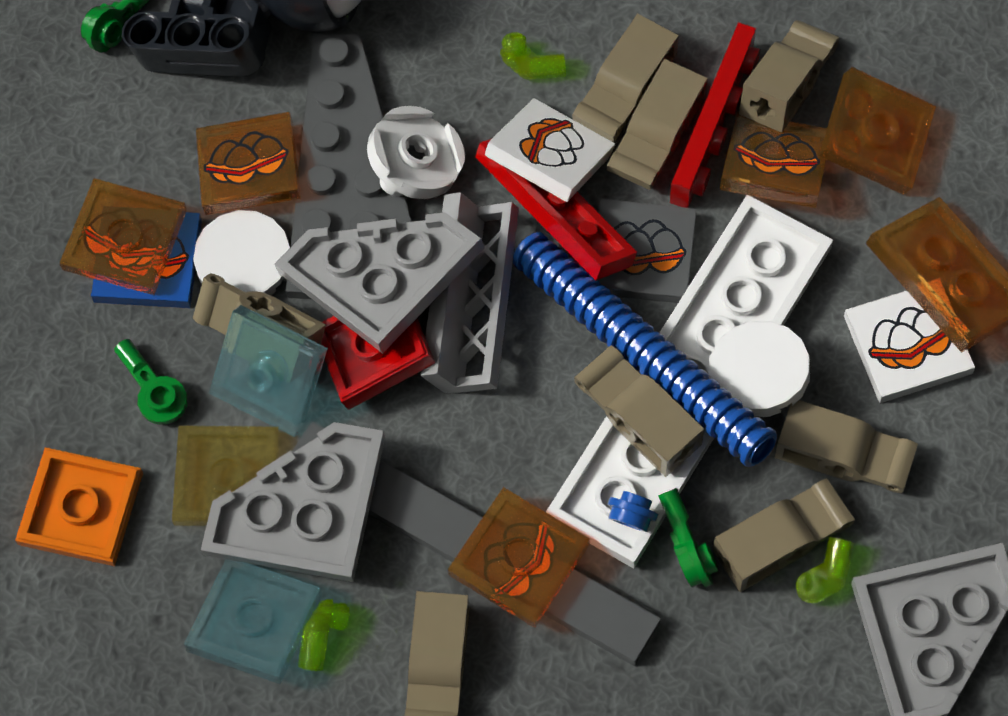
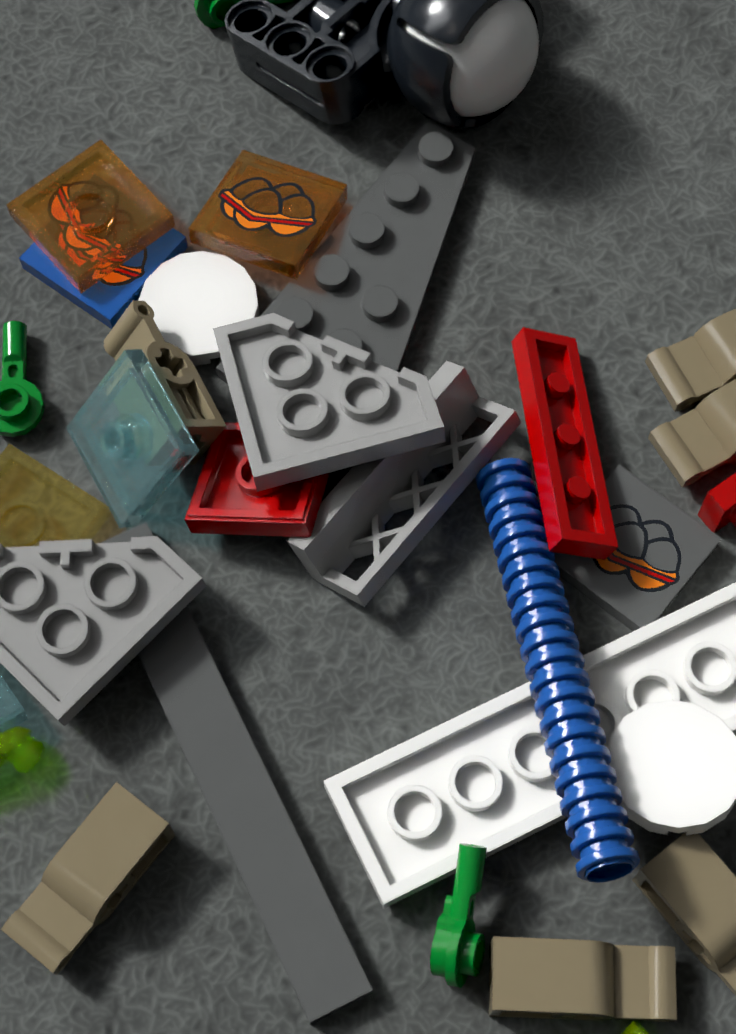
camera: 30 degrees right, 0 degrees up
(399, 170) = (422, 317): white plate -> none
(519, 557) = (259, 814): clear orange tile -> none
(527, 63) = (636, 276): clear neon green arm -> none
(549, 149) = (596, 378): white tile -> none
(632, 511) = (415, 844): blue plate -> none
(641, 410) = (503, 731): dark tan piece -> none

